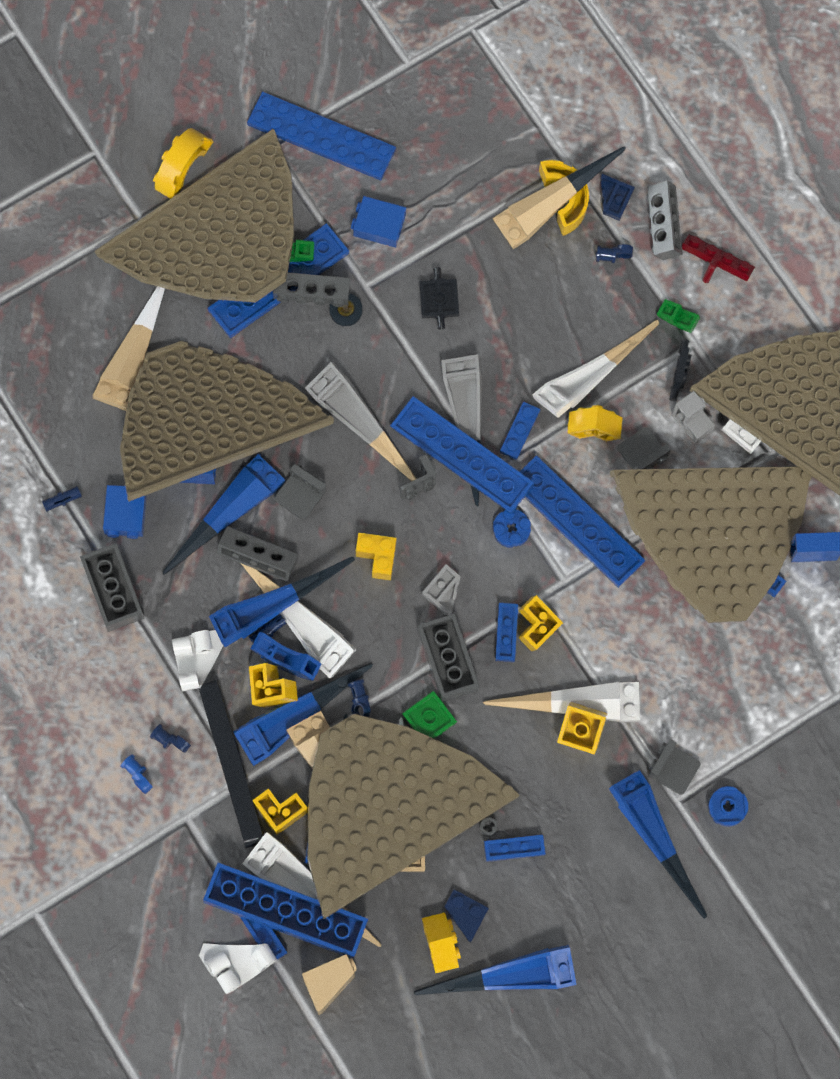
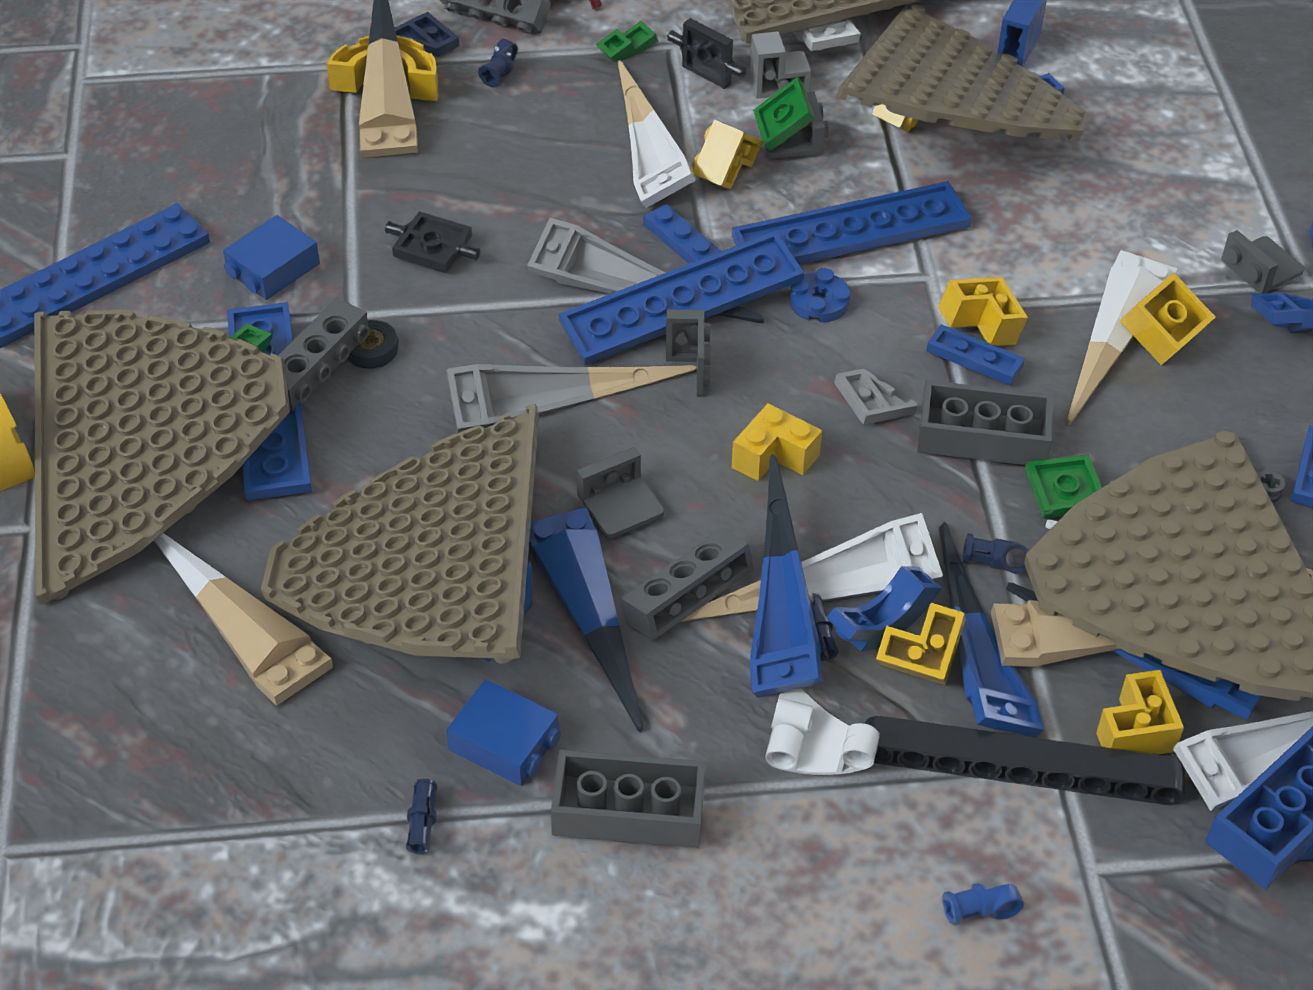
camera: 60 degrees left, 25 degrees down
(167, 739) = (941, 832): dark blue connector -> none
(643, 441) = (784, 114): none -> green plate

